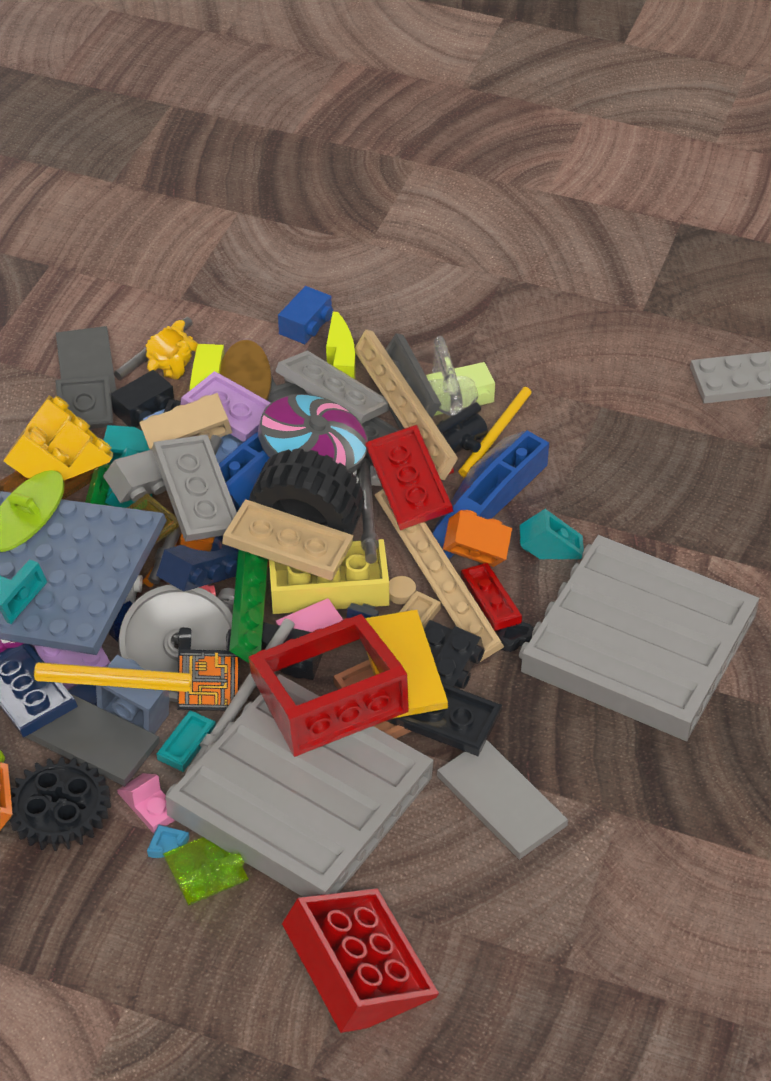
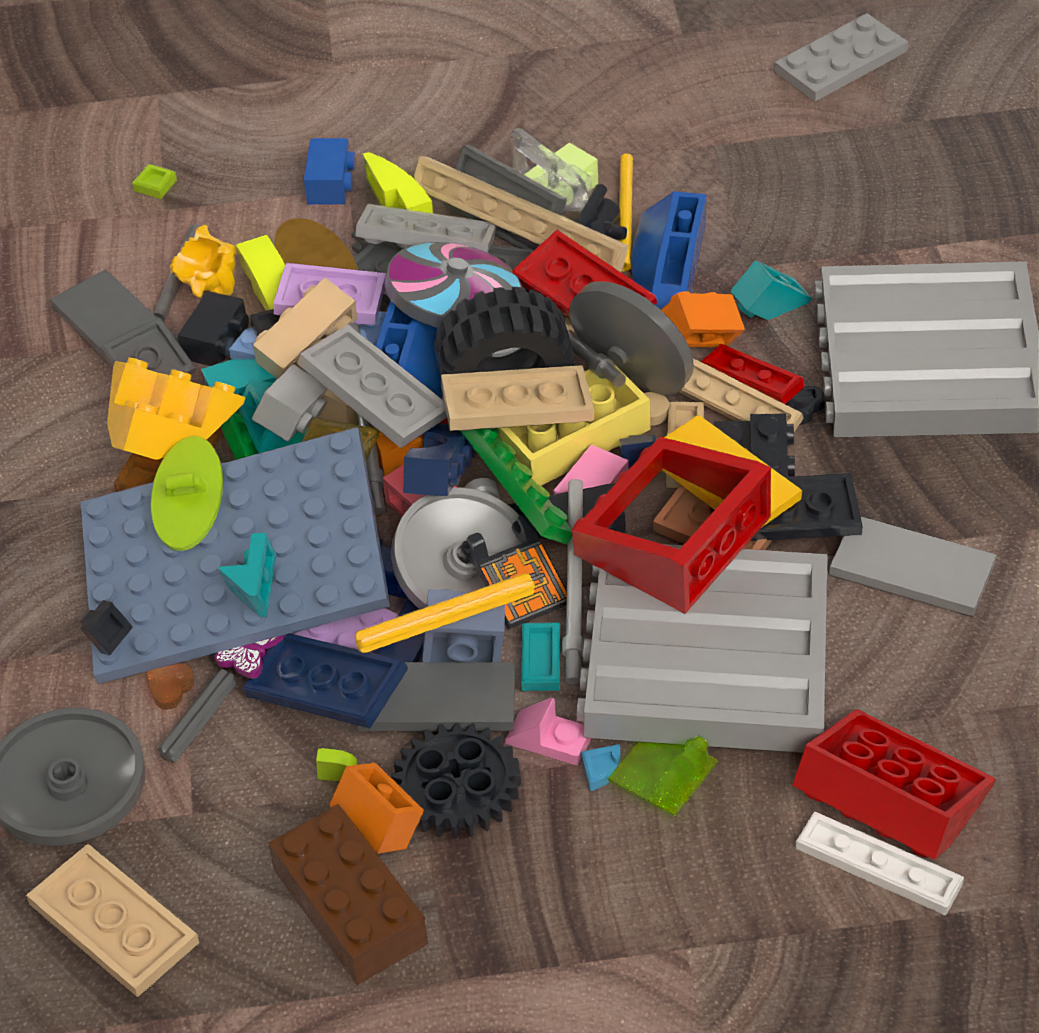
camera: 25 degrees left, 0 degrees up
(187, 275) = (154, 181): none -> lime tile
(305, 1015) = (880, 863): none -> white tile
(401, 531) = (632, 336): none -> dark grey dish

